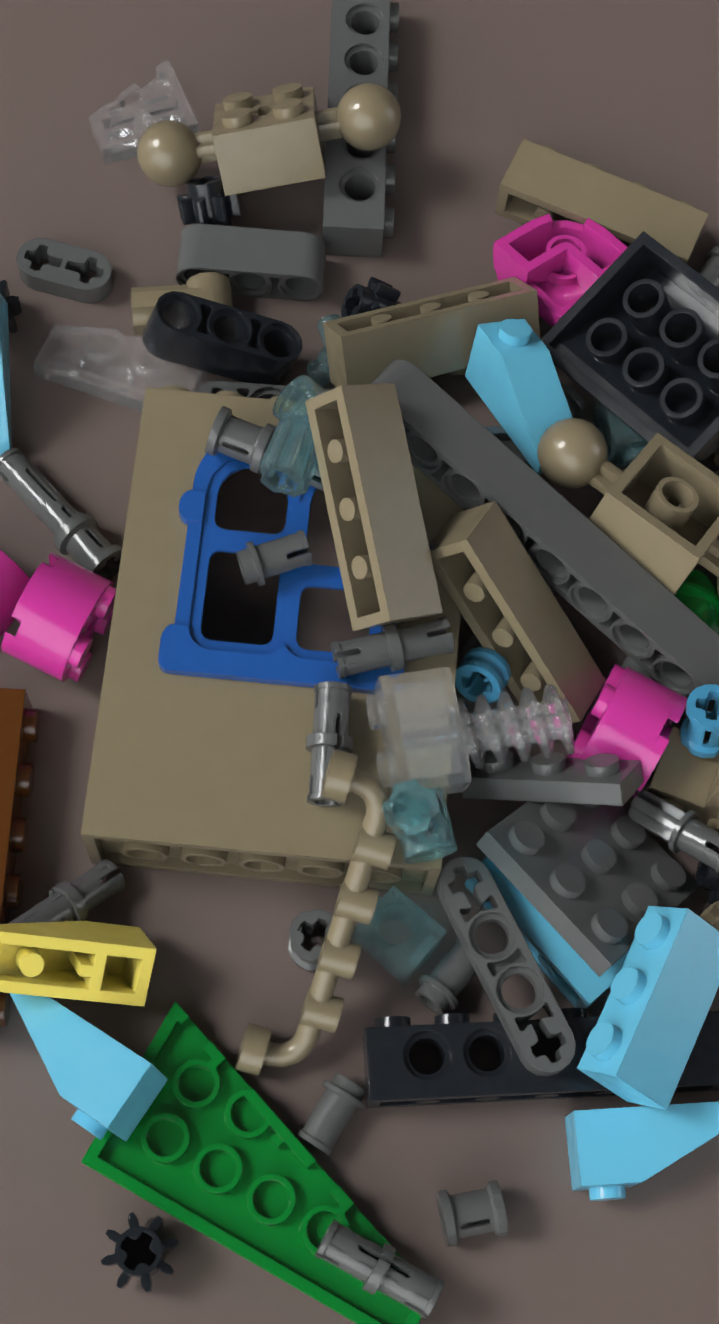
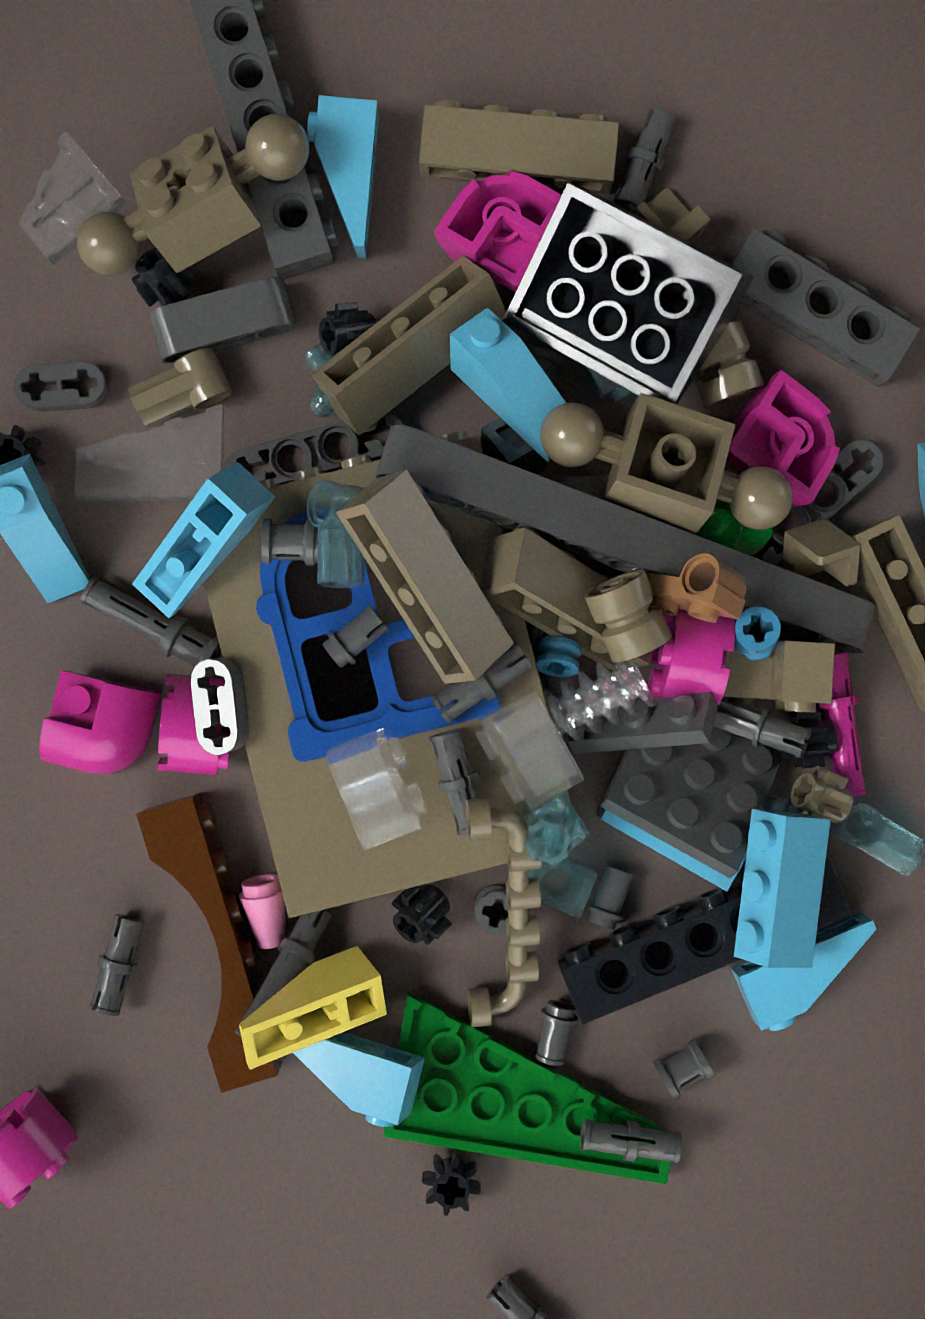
camera: 10 degrees left, 20 degrees up
(52, 849) = (265, 909): none -> bright pink cone
(100, 582) = (219, 705): none -> beam
(153, 408) = (203, 537): none -> medium azure slope
(221, 339) = (245, 401): black beam -> none
(227, 913) = (421, 914): none -> black gear
(235, 715) = (375, 788): none -> clear brick
(433, 159) = (347, 147): none -> medium azure slope
(512, 961) = (655, 886): dark grey beam -> none
(574, 629) = (630, 622): none -> dark tan wheel
(661, 640) = (703, 589): none -> medium nougat plate

